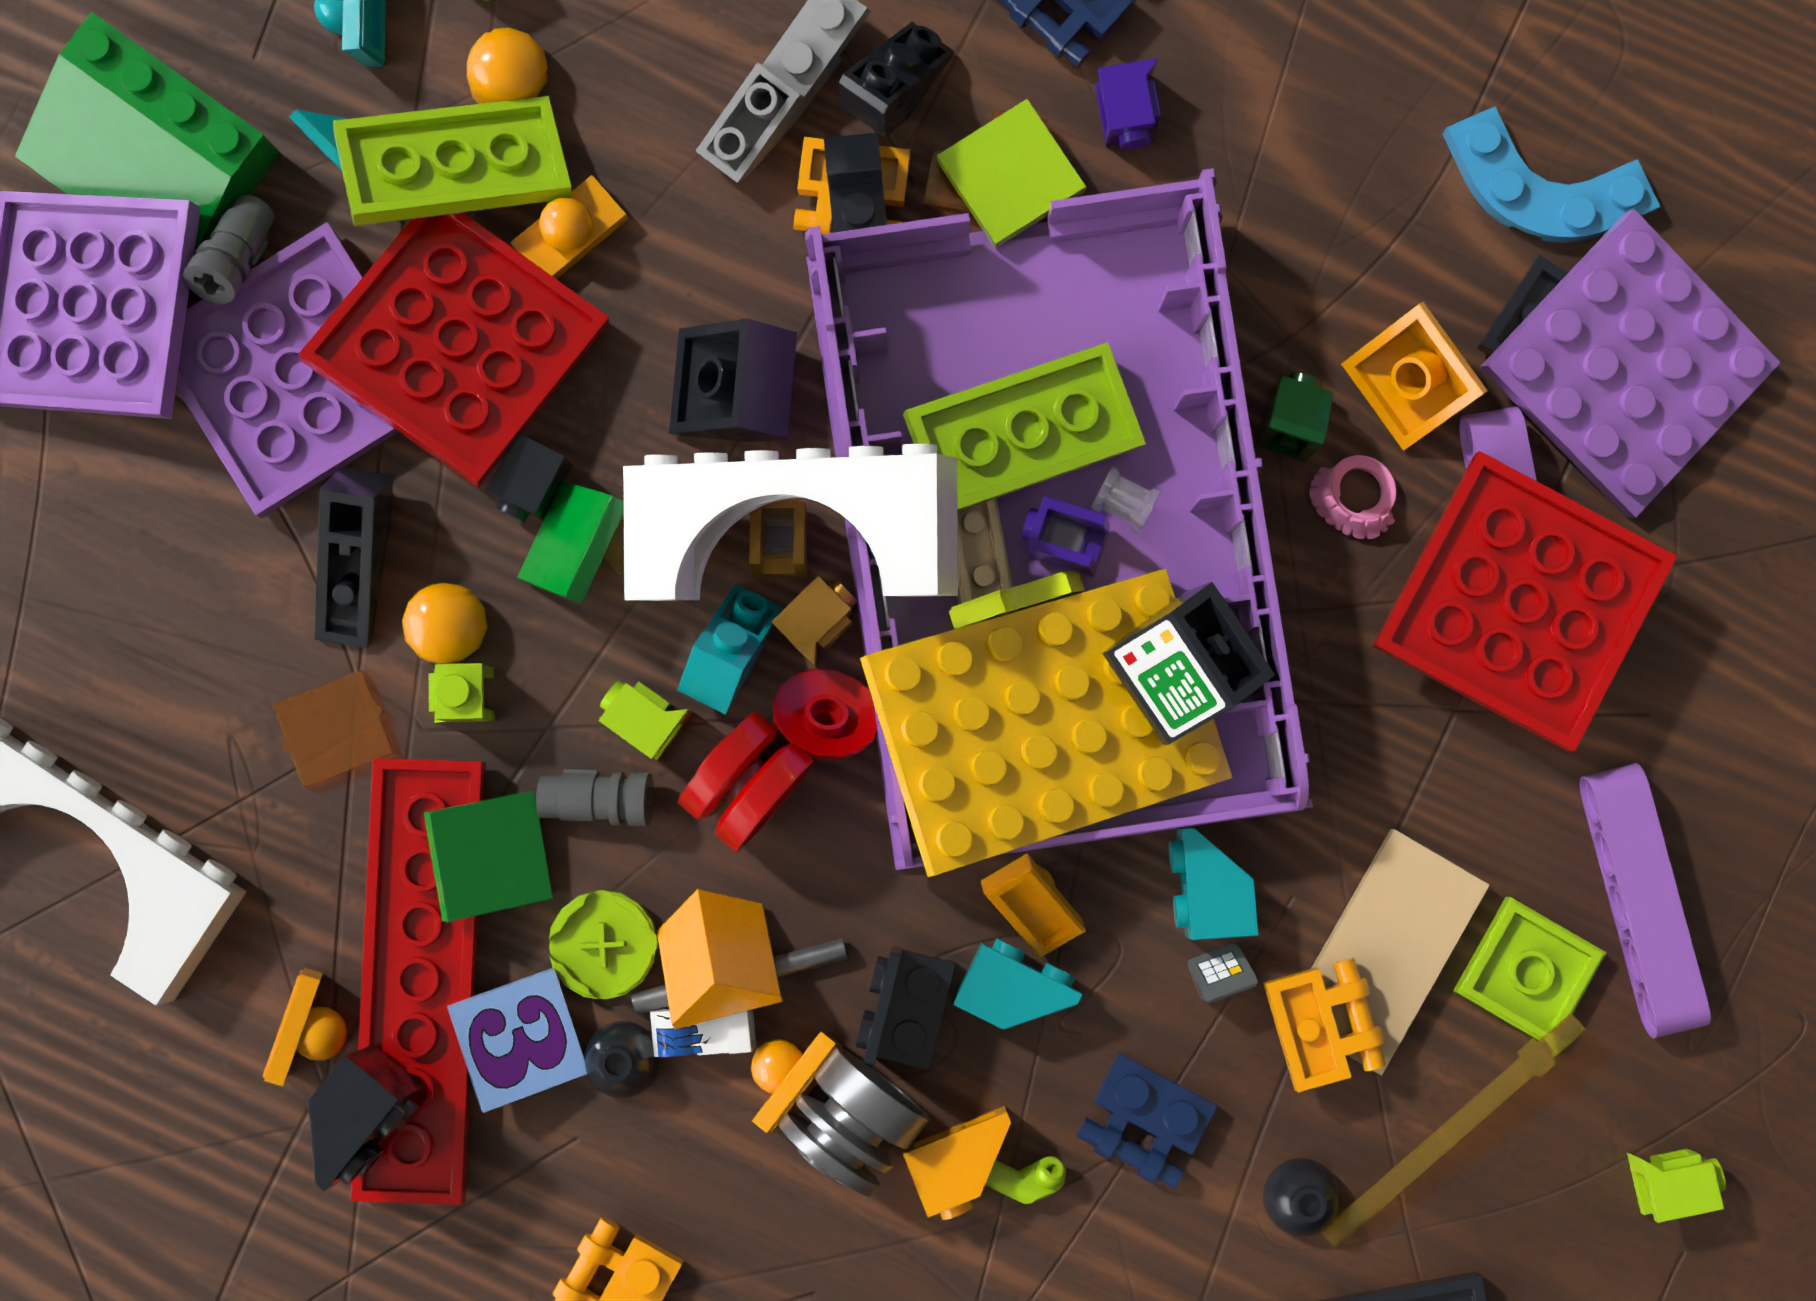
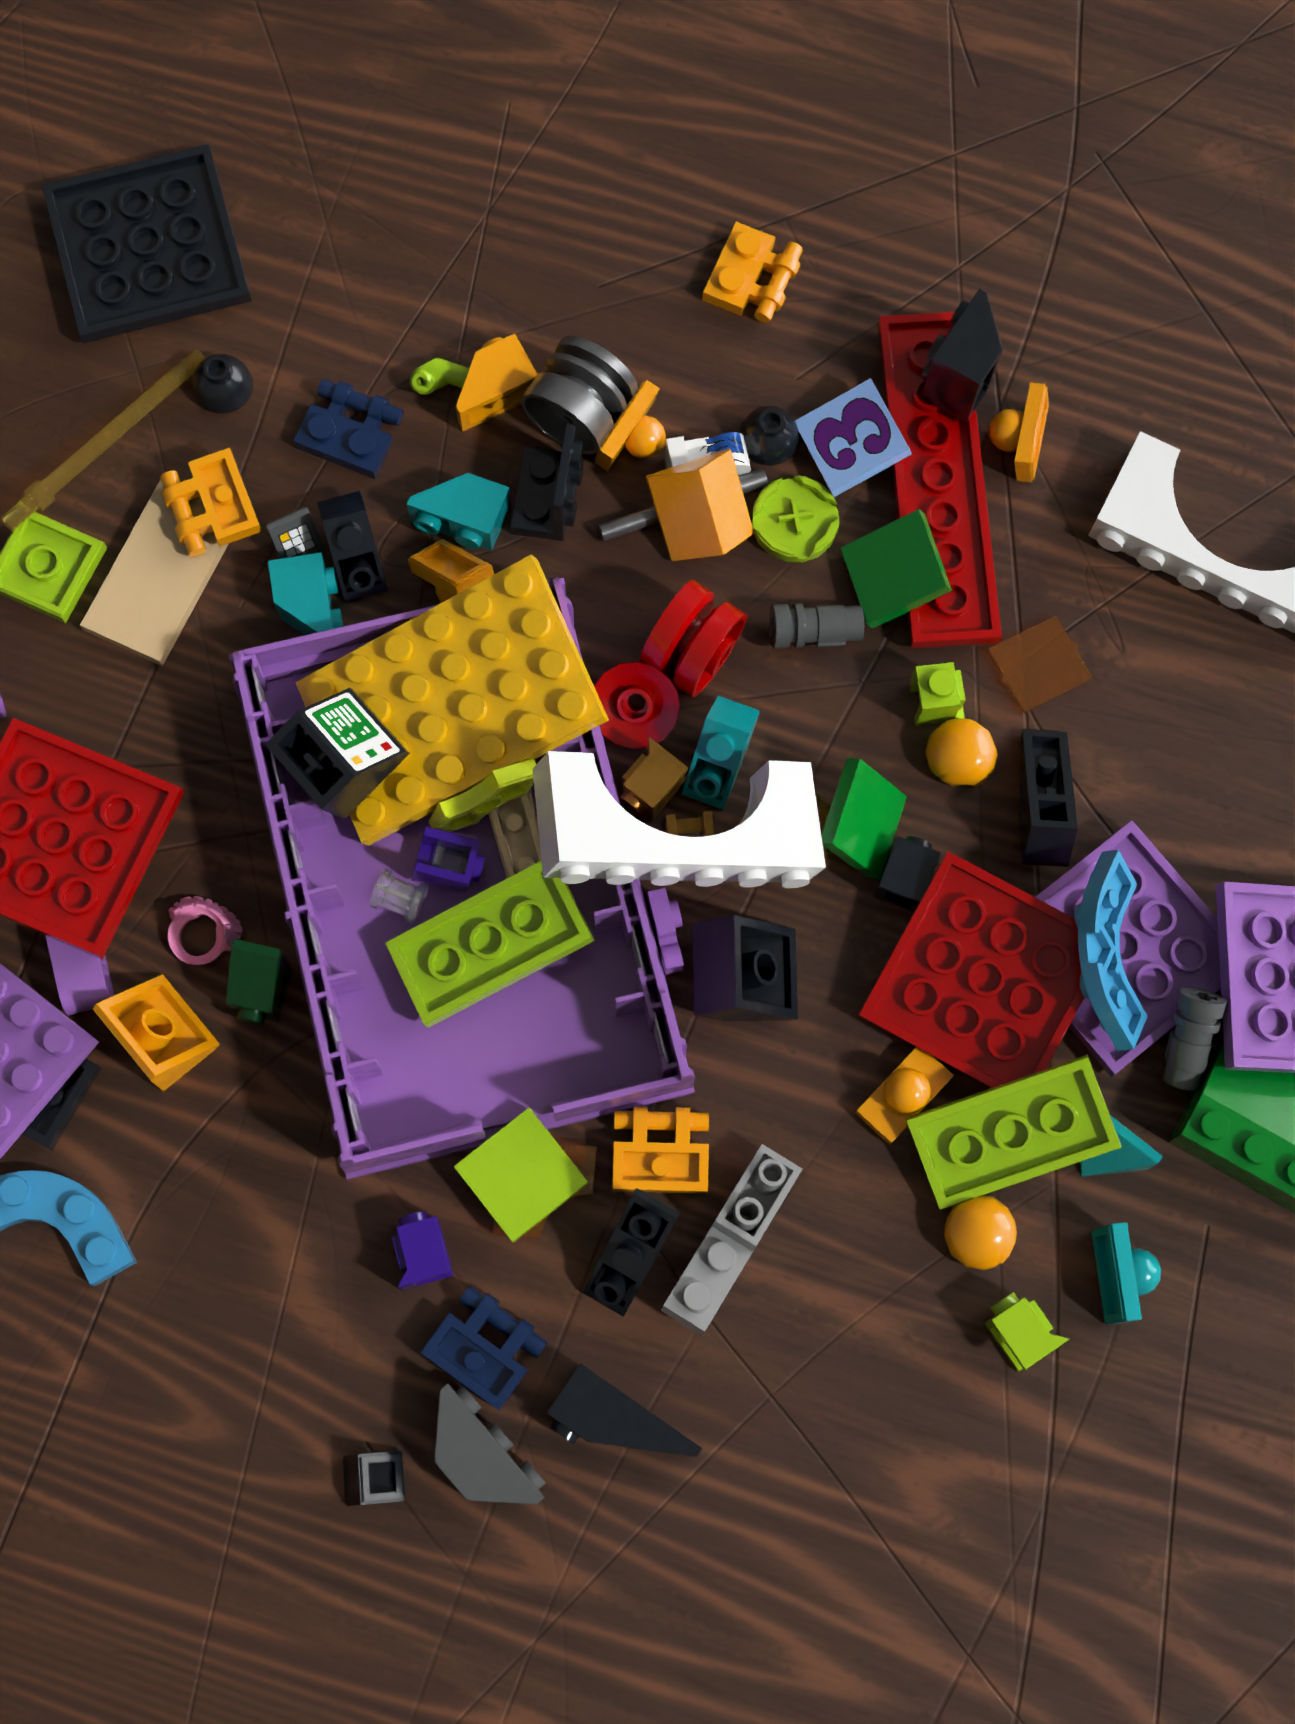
camera: 165 degrees right, 10 degrees down
(313, 372) = (1102, 973): none -> dark azure plate
(642, 717) = (786, 689): lime window -> none
(817, 420) = (665, 919): none -> medium lavender plate
(855, 181) = (657, 1145): black slope -> none
(1153, 957) = (352, 546): none -> black slope

